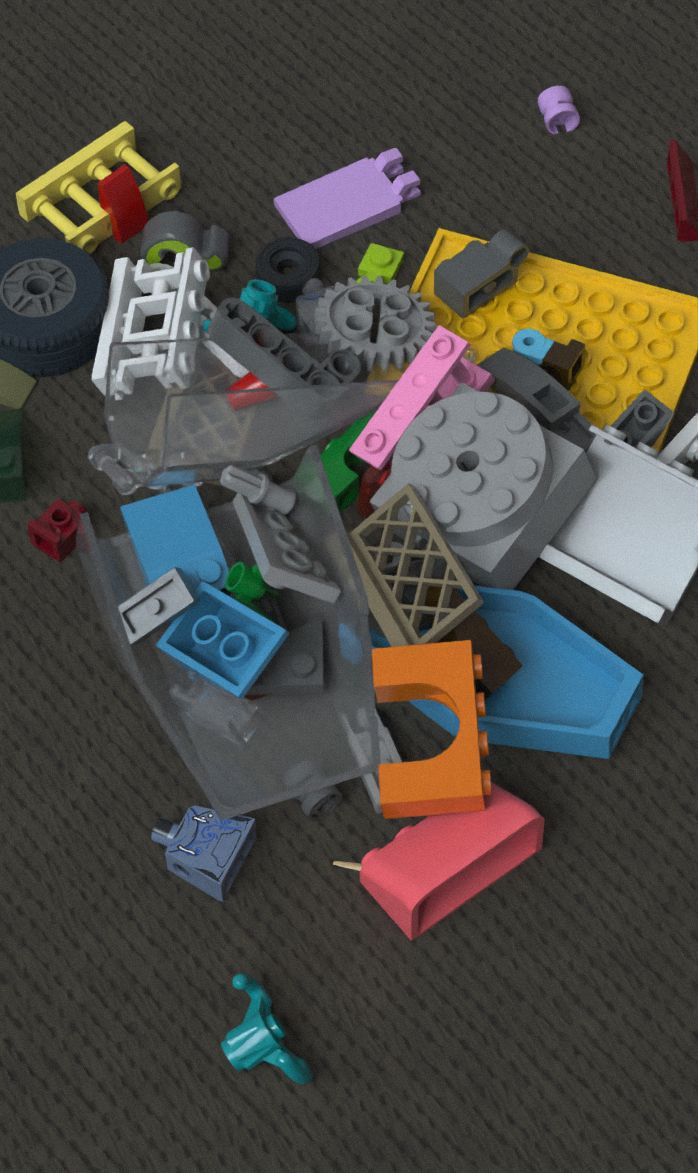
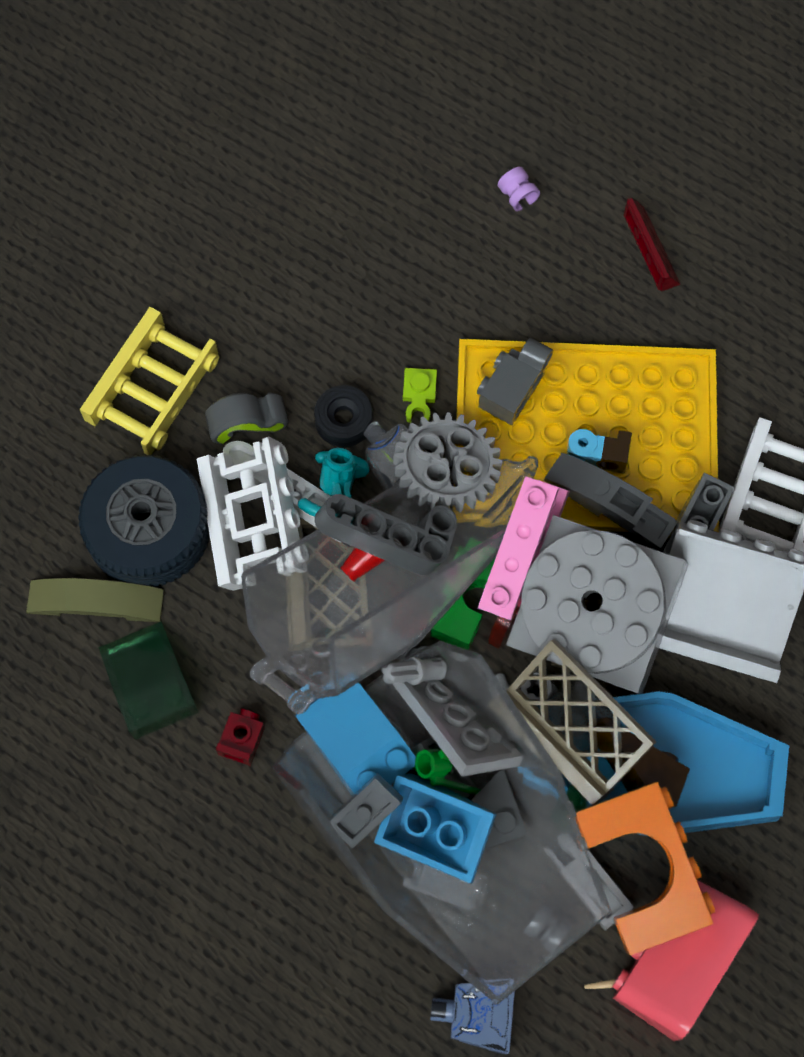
camera: 20 degrees left, 15 degrees up
(123, 203) = (180, 394): red slope -> none
(348, 199) = (367, 329): lavender tile -> none

